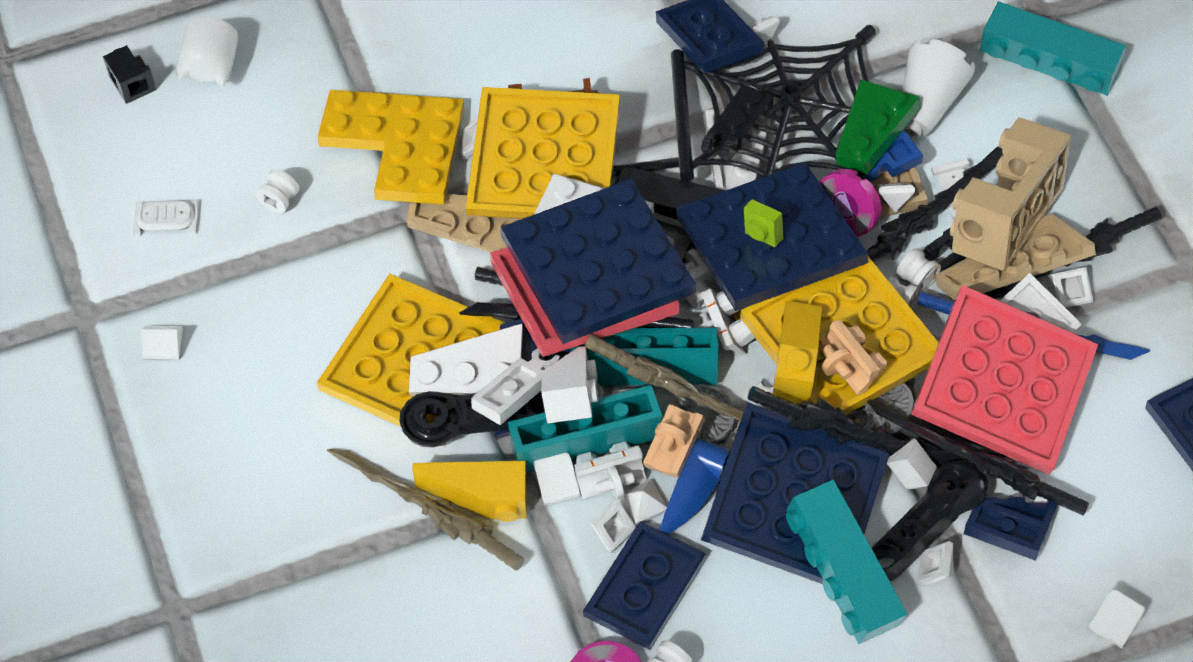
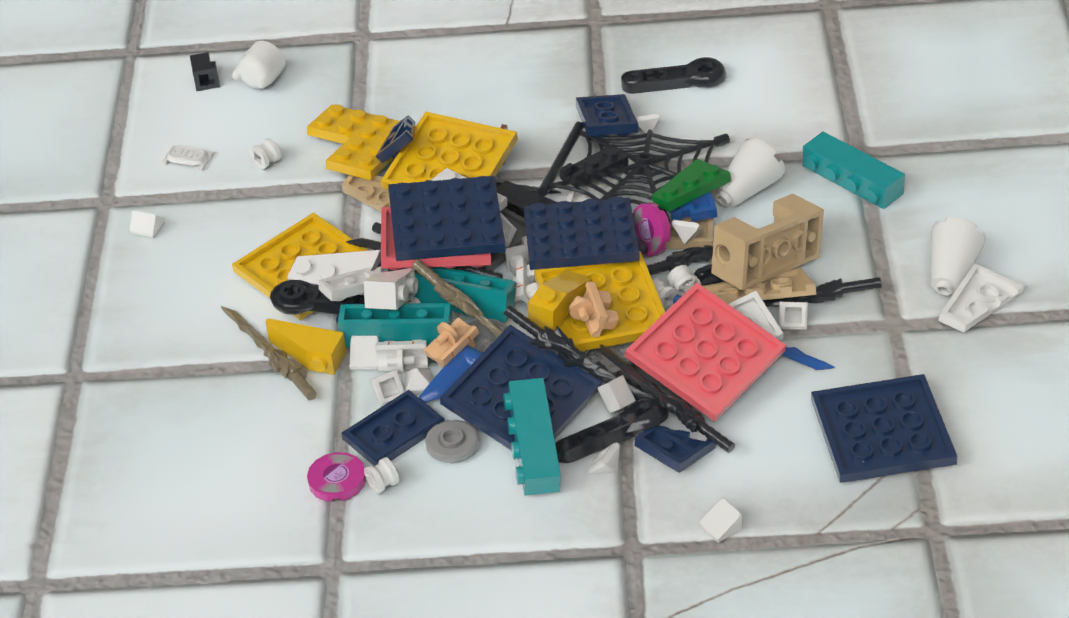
camera: 20 degrees right, 15 degrees down
(462, 137) = (398, 137): none -> dark blue wing
(730, 585) = (452, 441): none -> light grey wheel
(763, 223) = (570, 216): lime plate -> none

